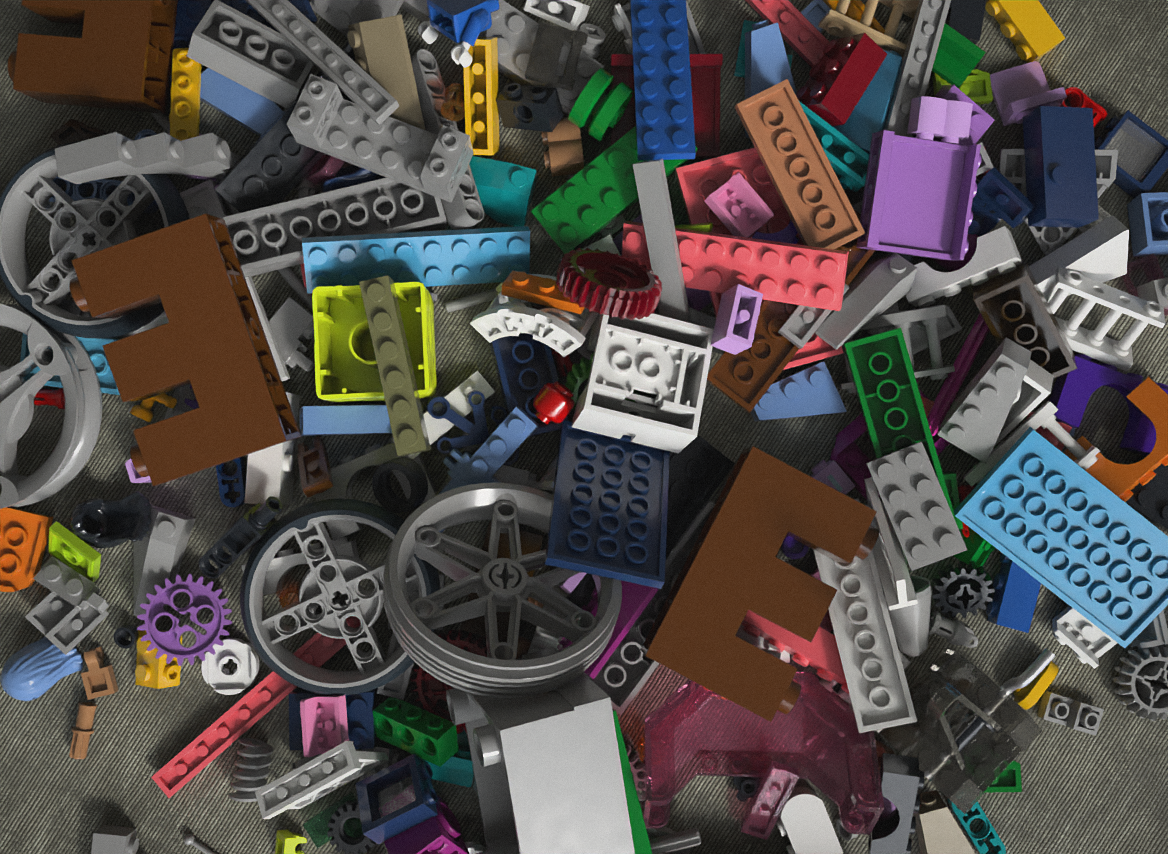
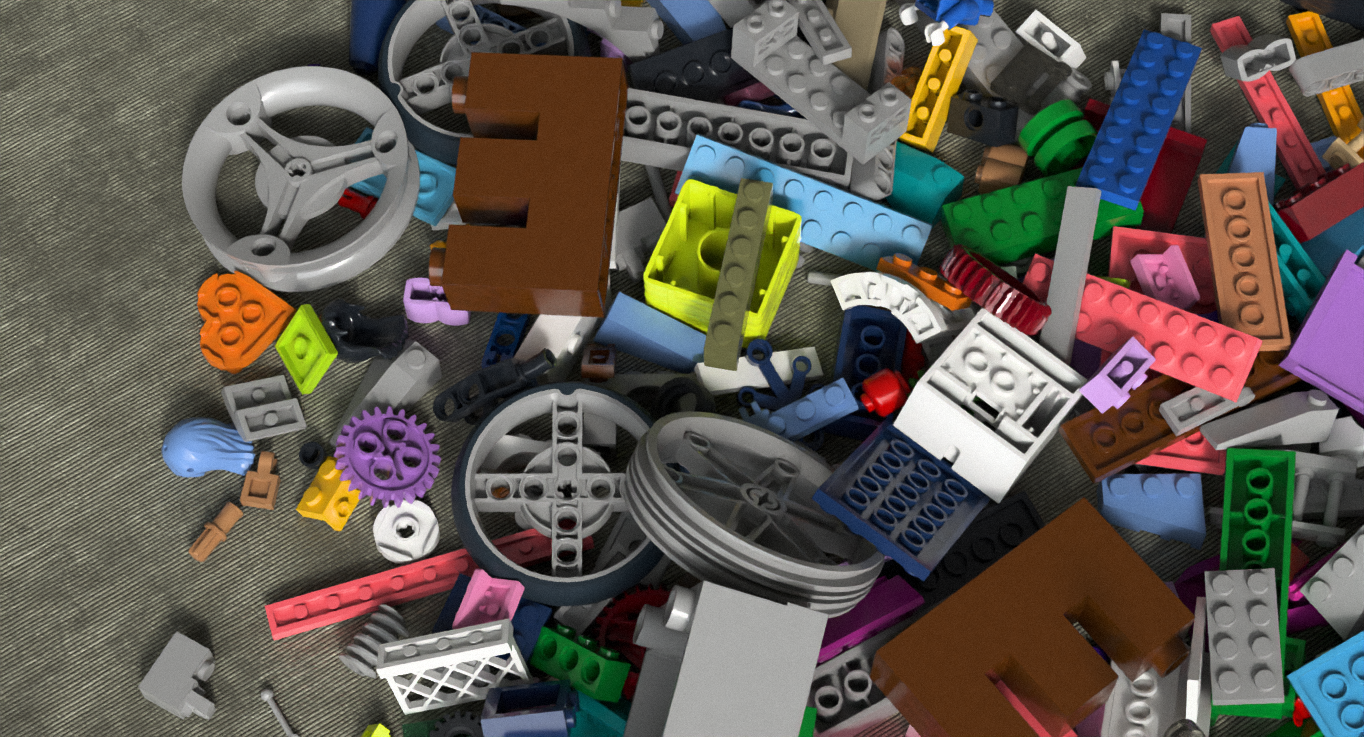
camera: 25 degrees right, 25 degrees down
(70, 585) = (284, 381): light grey hinge -> none

